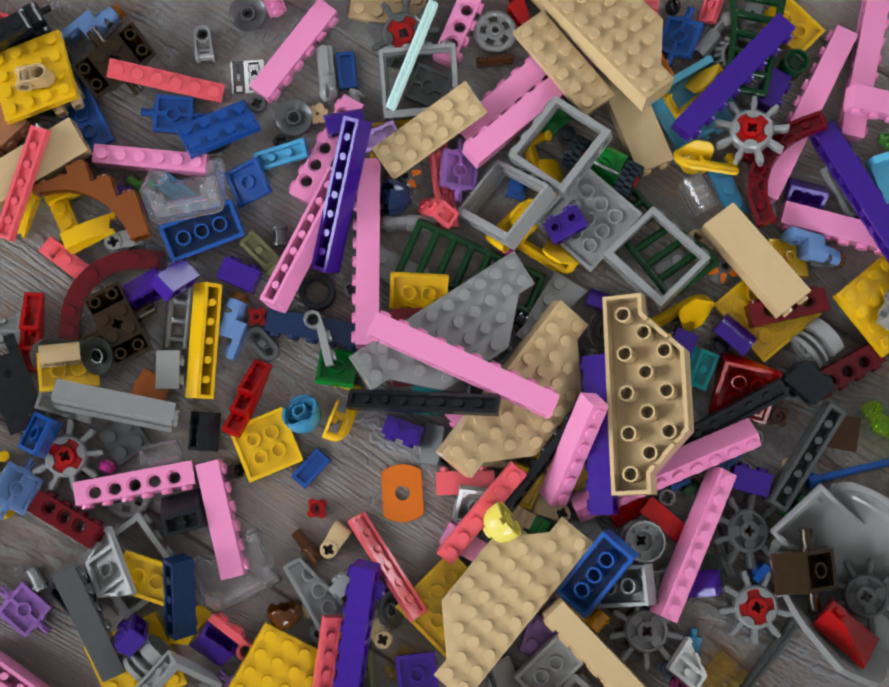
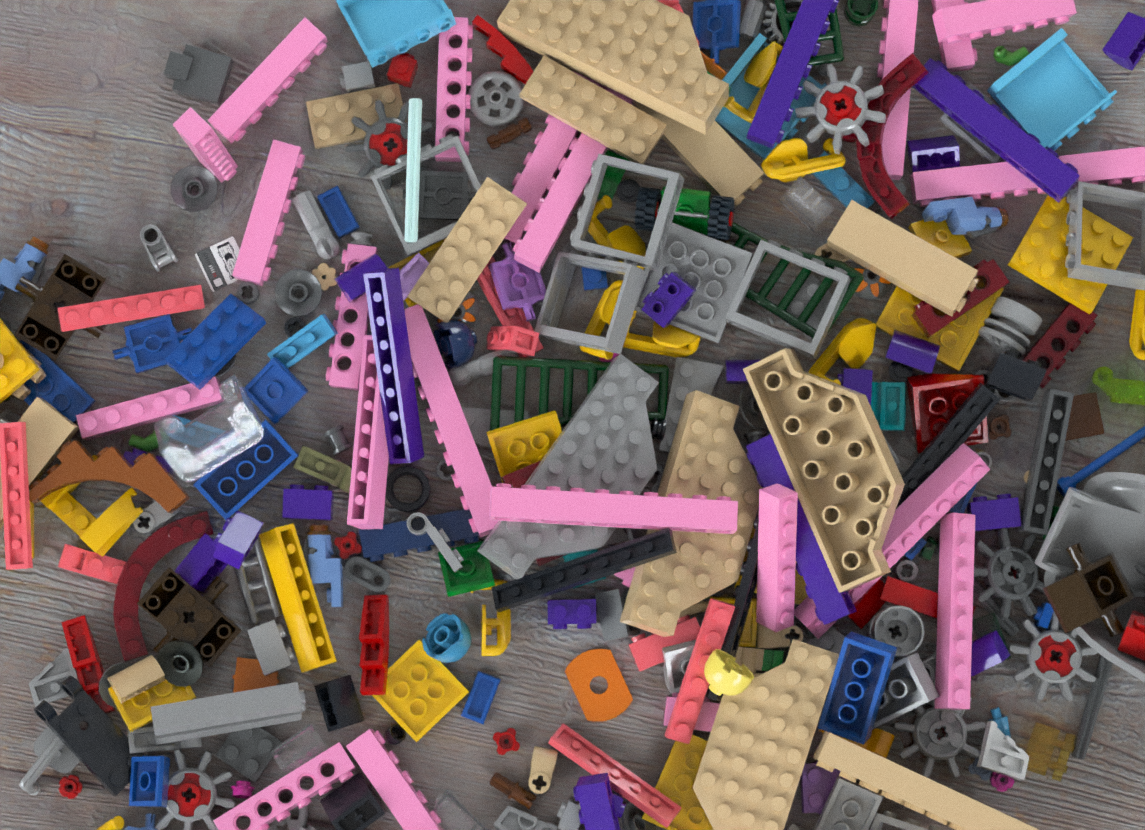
camera: 25 degrees left, 0 degrees up
(778, 86) = (853, 38): dark purple brick -> none

